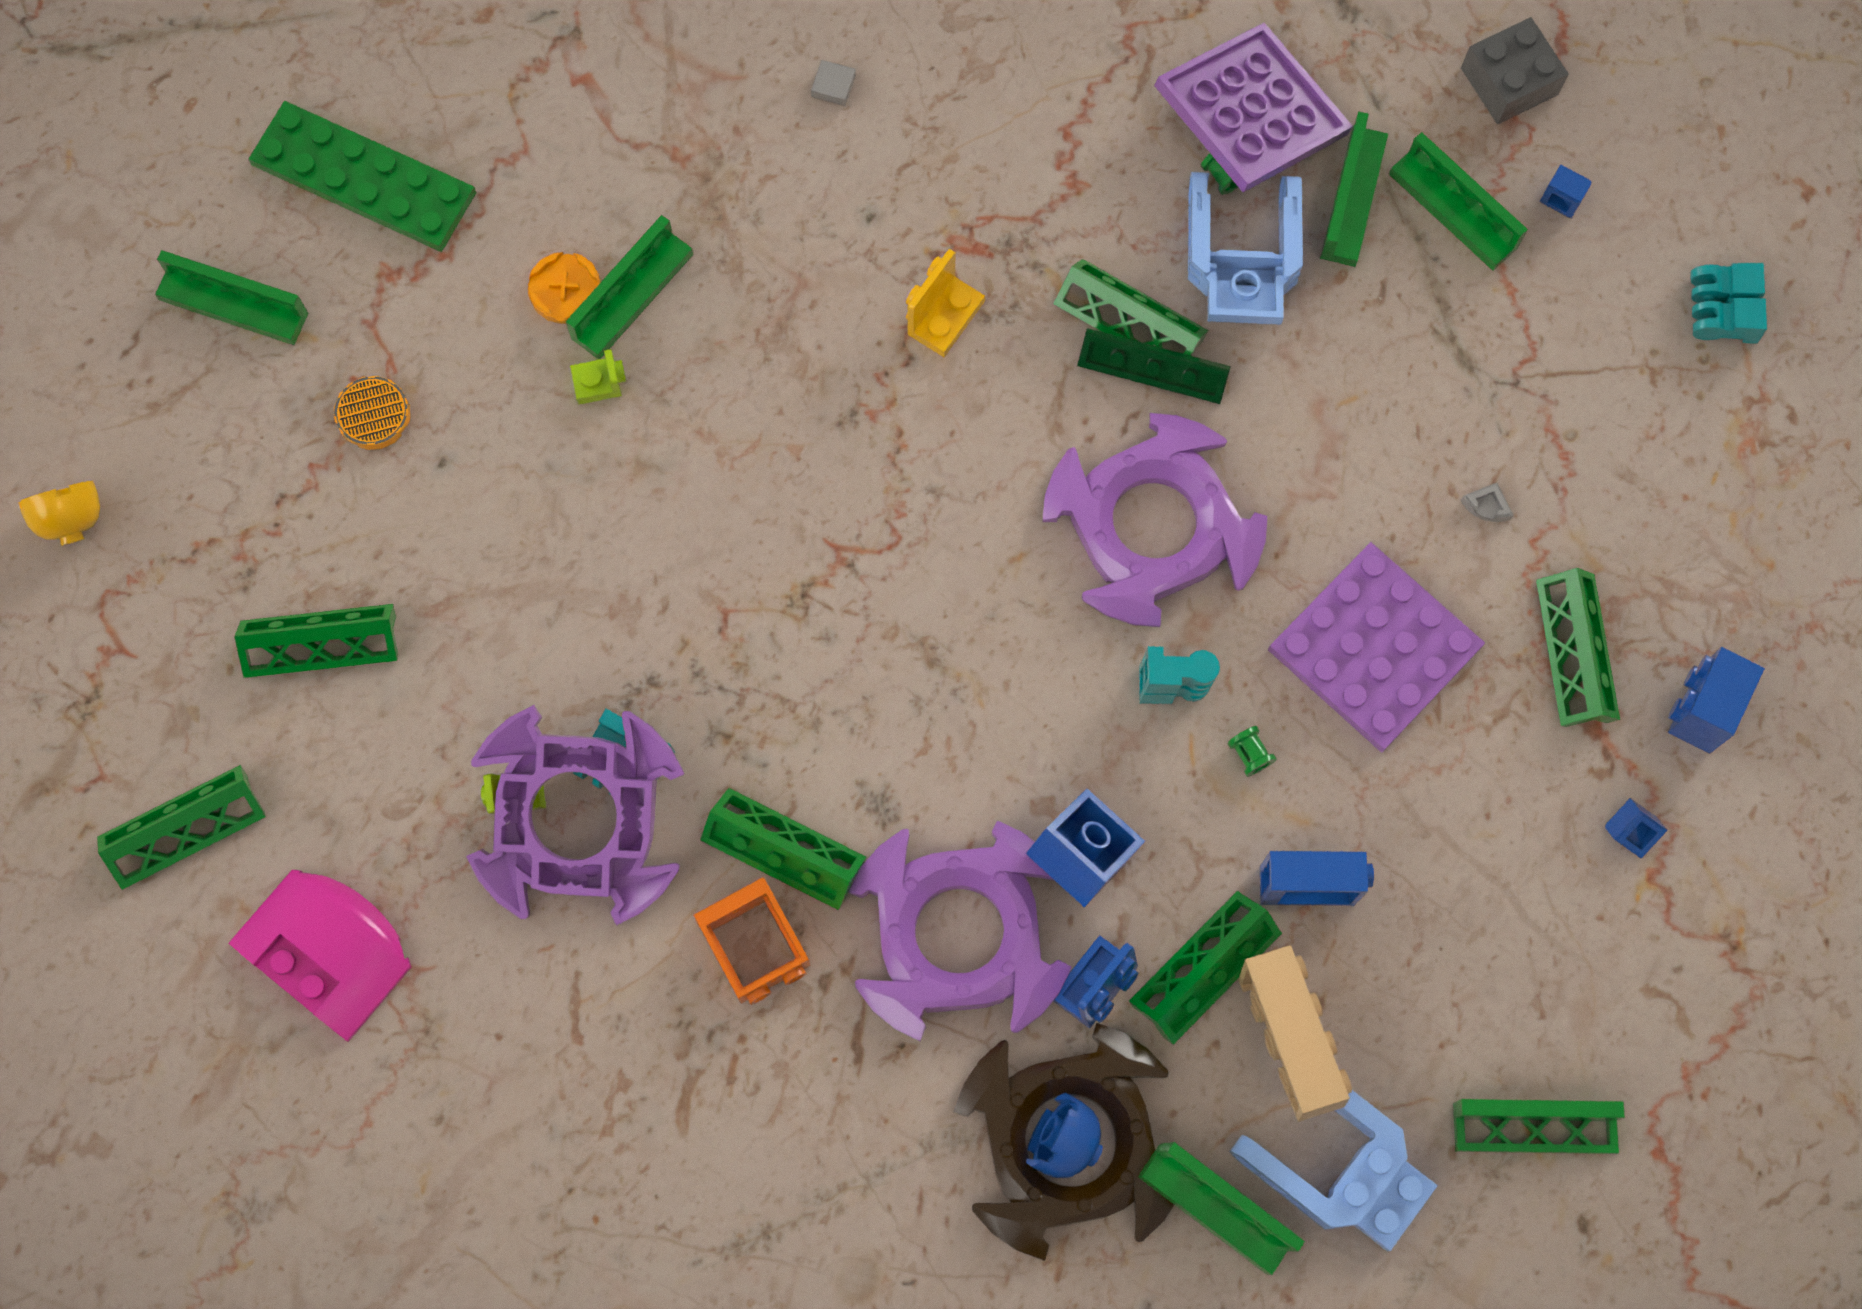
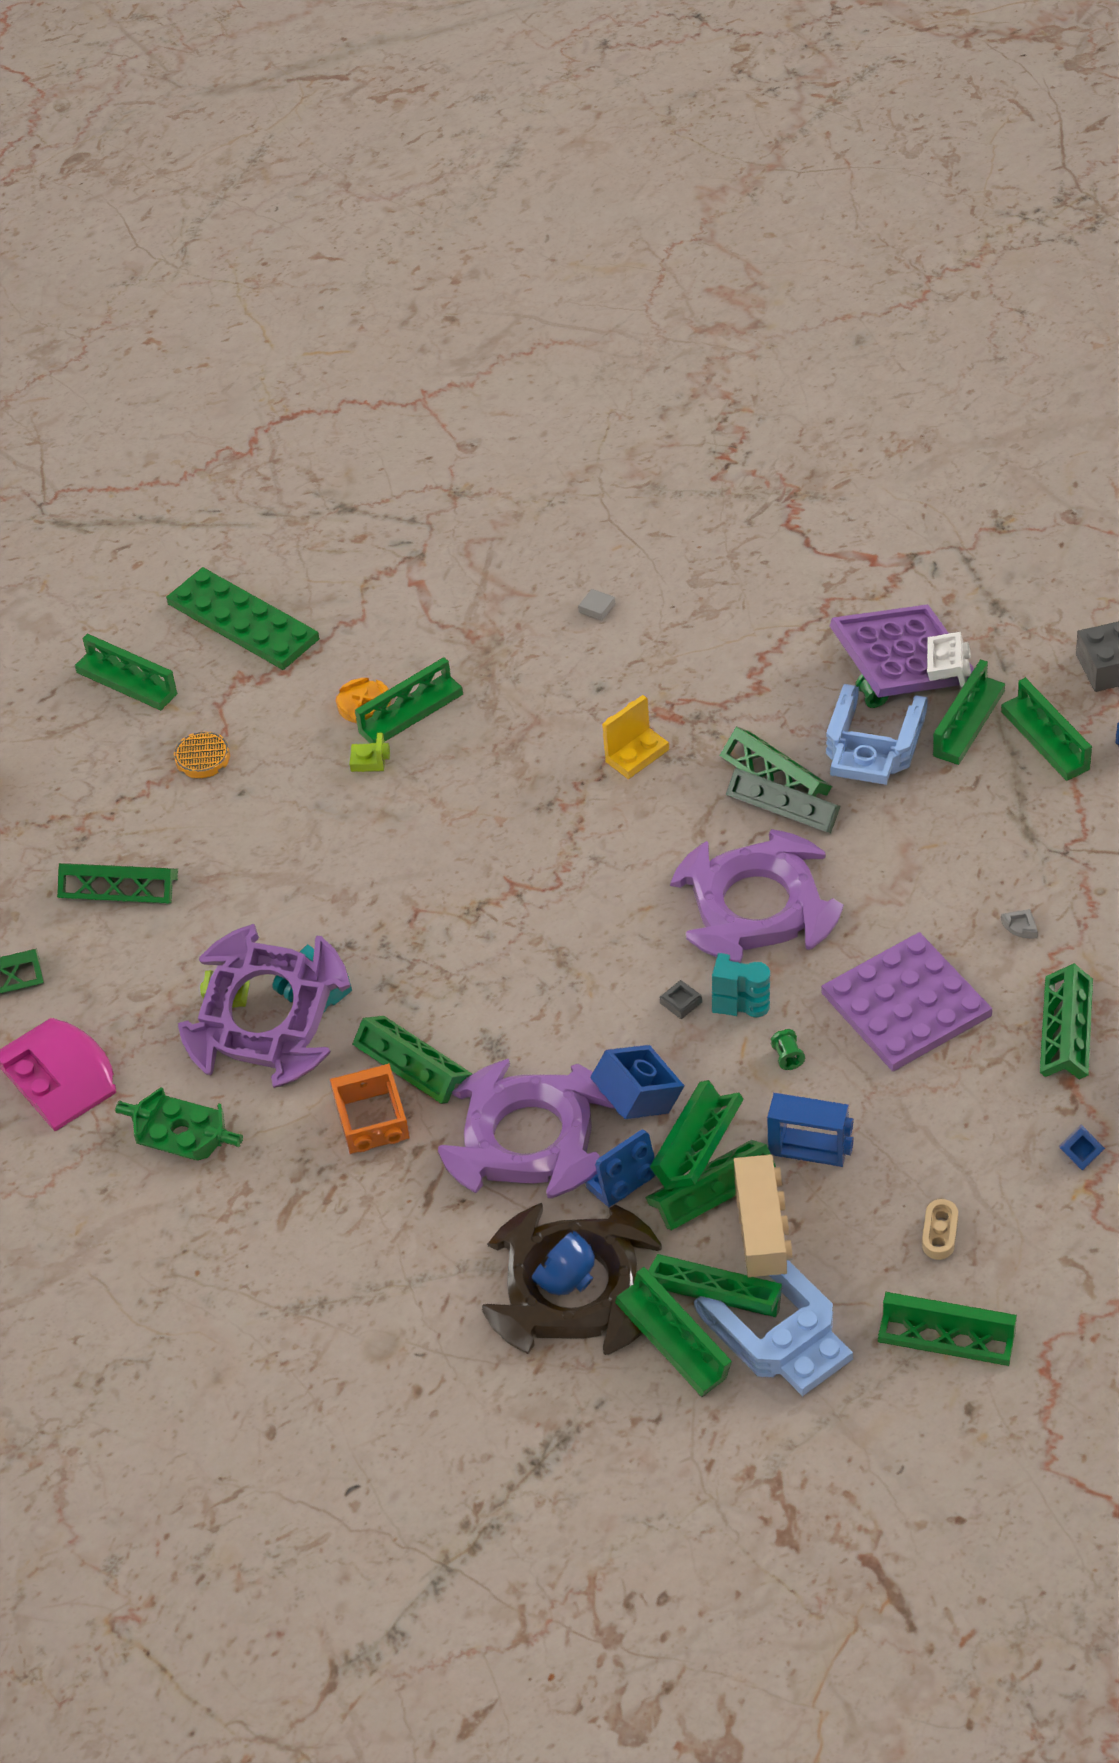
camera: 20 degrees right, 25 degrees down
(480, 1003) = (160, 1115): none -> green plate
(1098, 693) = (680, 999): none -> dark grey tile
(1164, 909) = (691, 1135): none -> green fence
(1254, 1122) = (717, 1284): none -> green fence
(1316, 116) = (948, 657): none -> white bracket
(1498, 983) = (940, 1231): none -> tan plate

